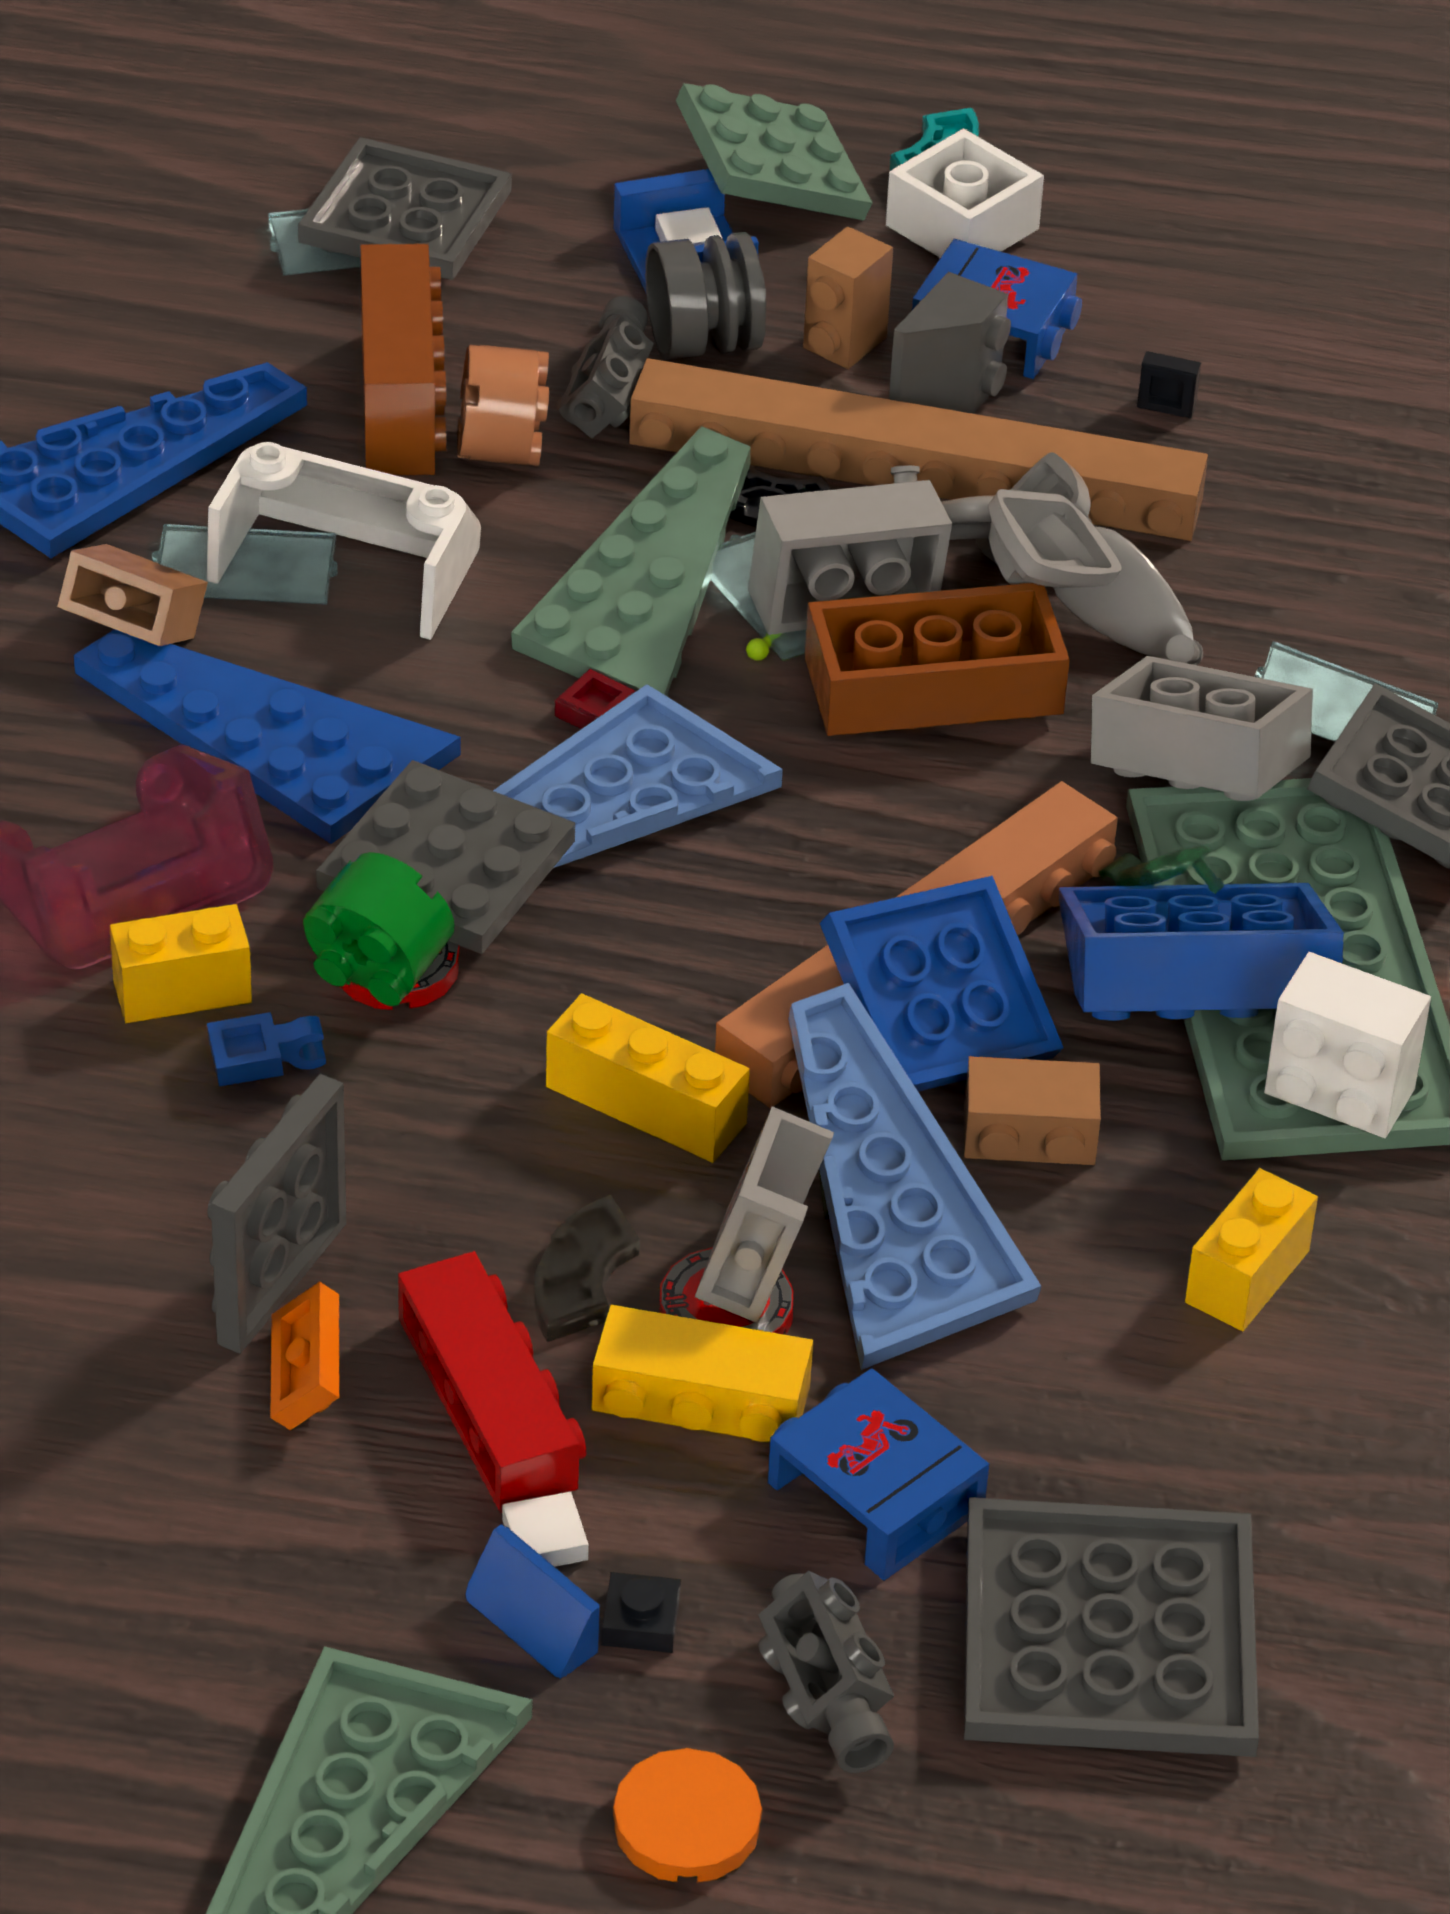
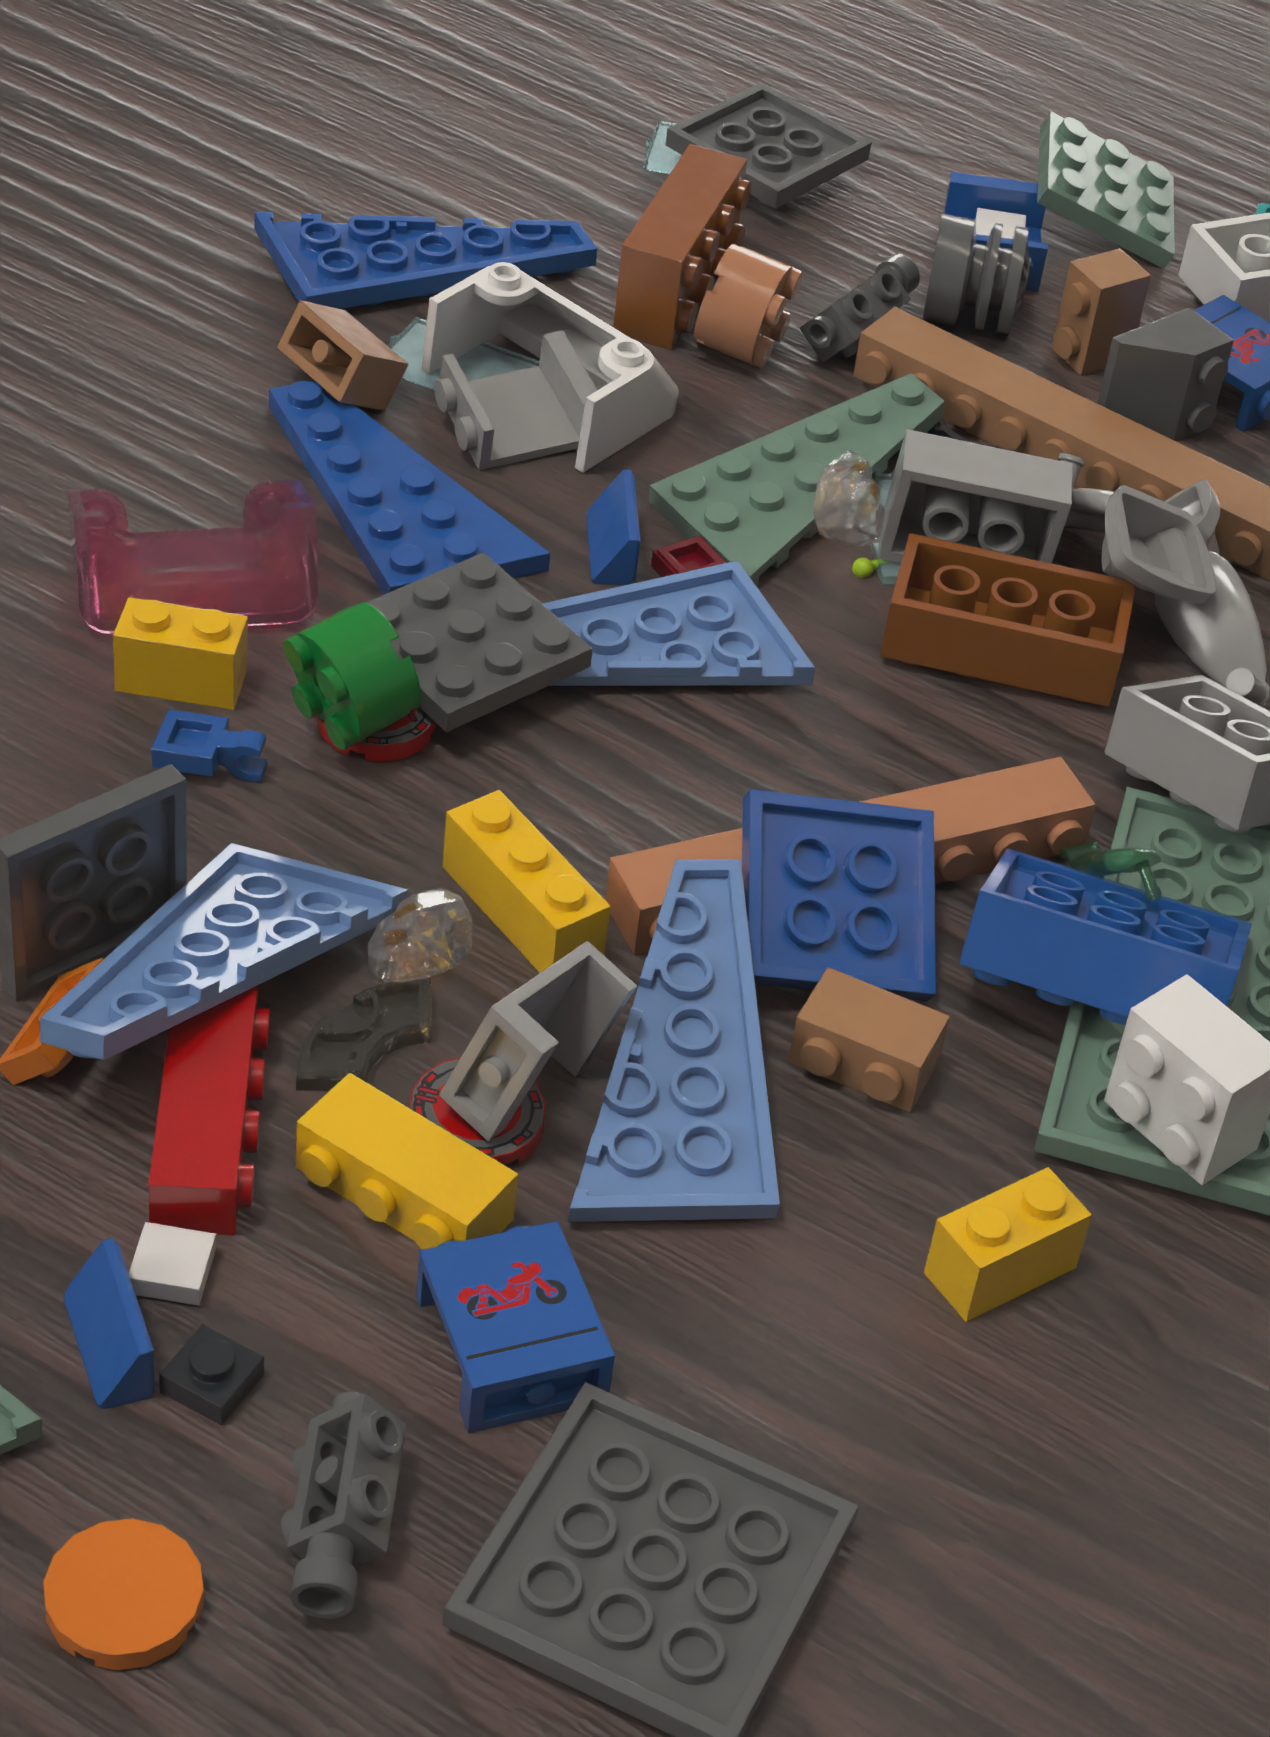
camera: 20 degrees right, 0 degrees up
(340, 590) = (518, 411): none -> light grey panel
(415, 1227) = (211, 941): none -> medium blue wing
(508, 693) = (614, 533): none -> blue slope
(584, 1159) = (421, 938): none -> clear rock
(720, 585) = (849, 502): none -> clear rock

